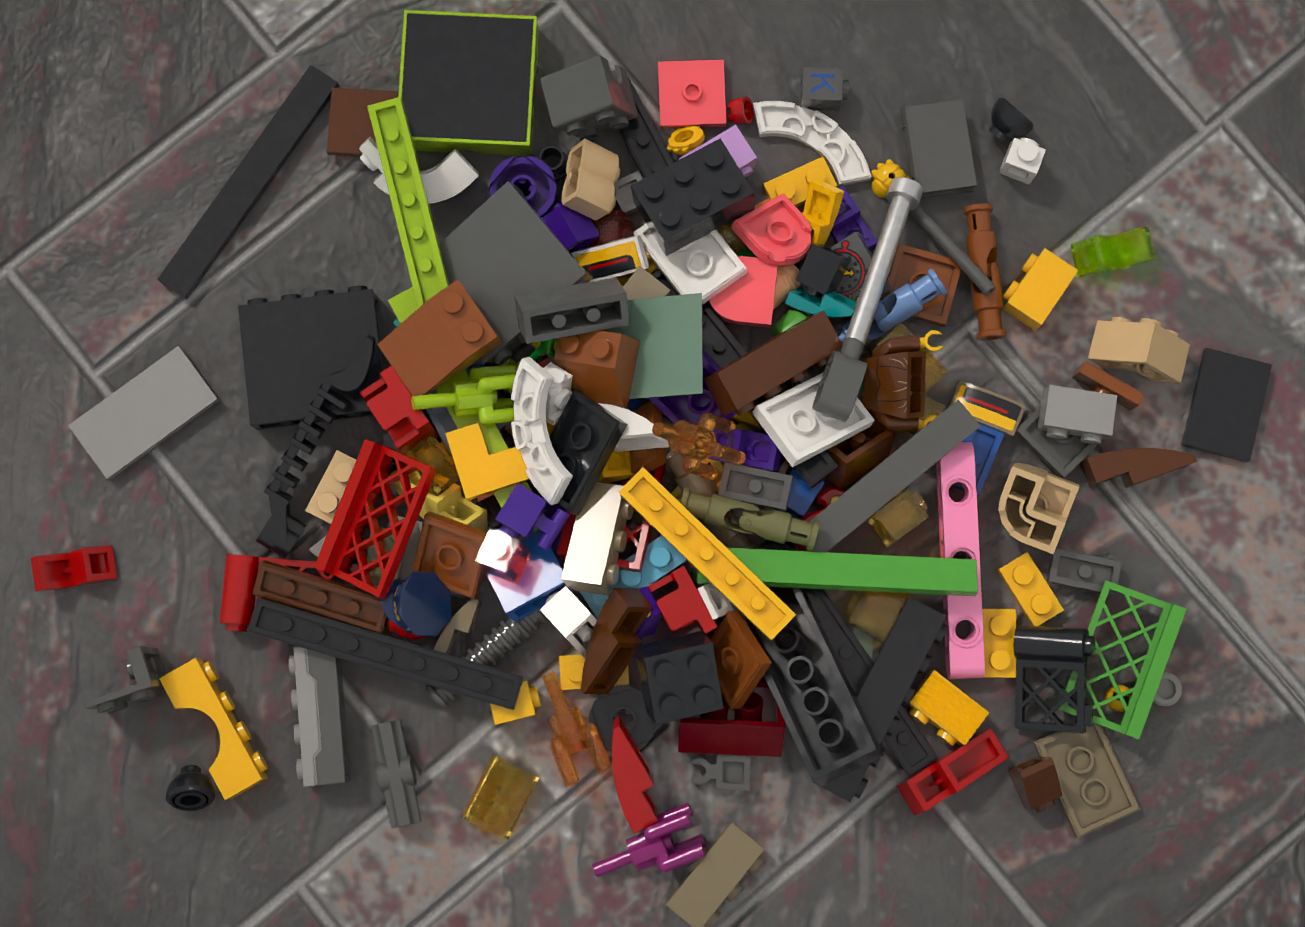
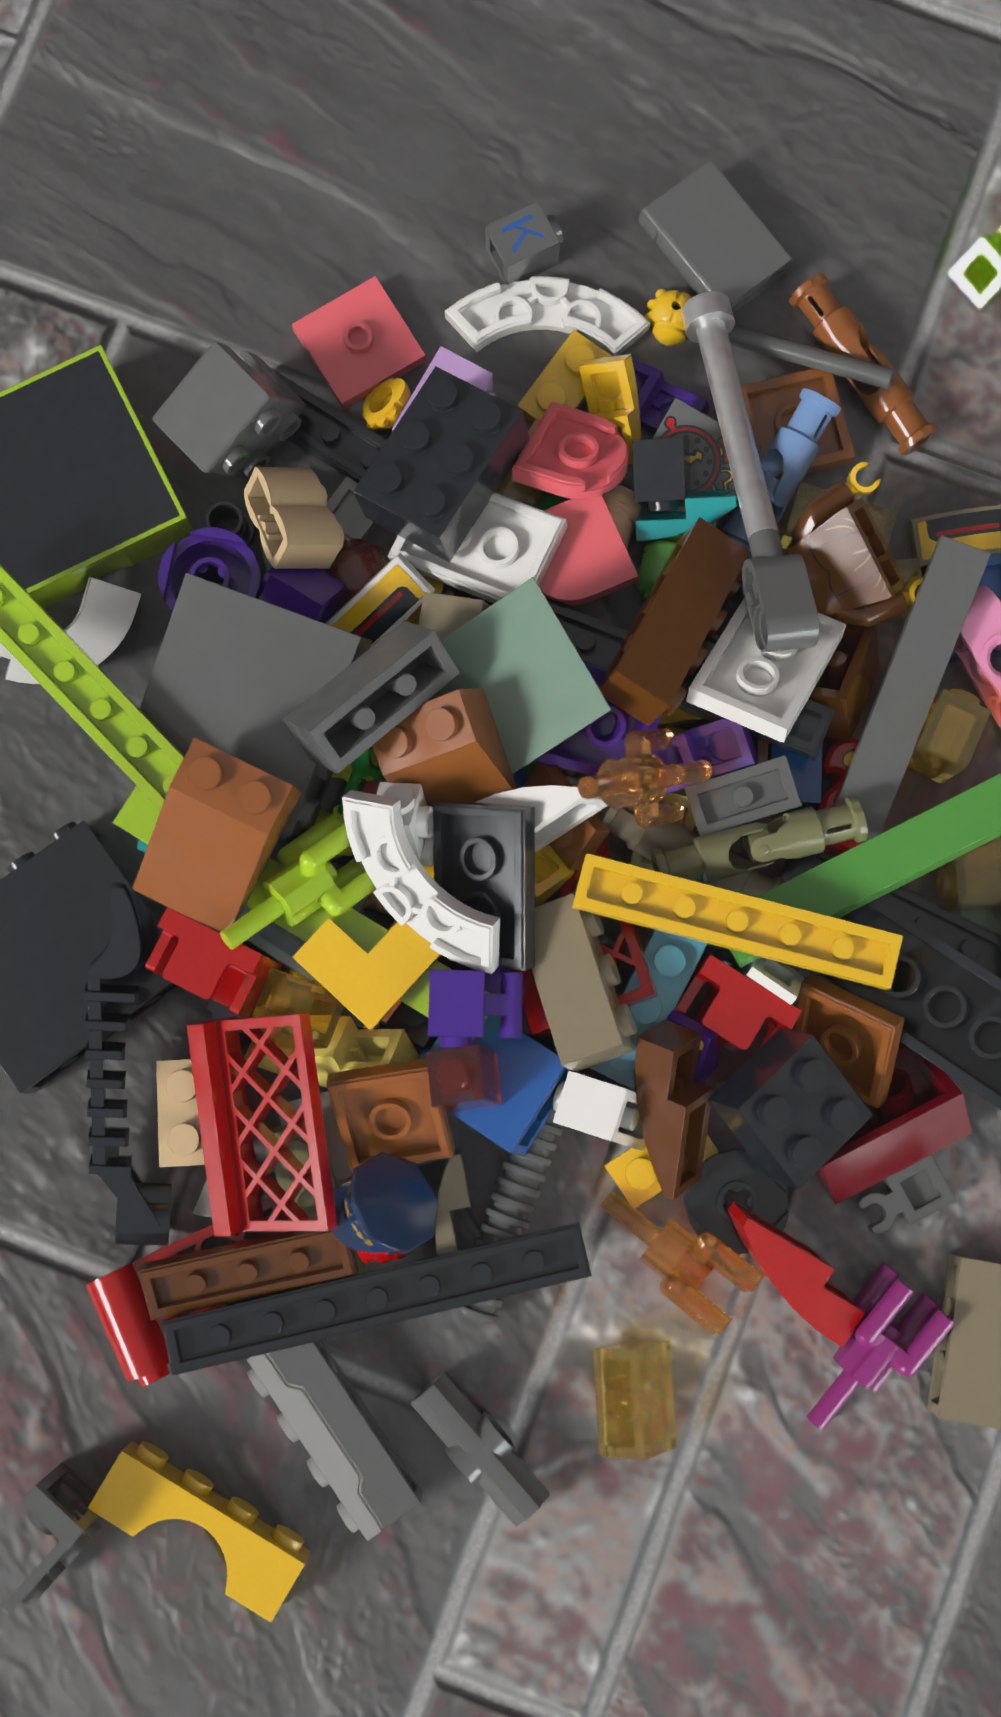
camera: 30 degrees left, 0 degrees up
(190, 790) = (214, 1632): black brick -> none
(525, 706) = (602, 1262): yellow brick -> none
(741, 110) = (435, 328): red hinge -> none
(1008, 121) = (784, 157): black brick -> none
(1022, 160) = (830, 187): white brick -> none
(1039, 289) = (945, 347): yellow brick -> none

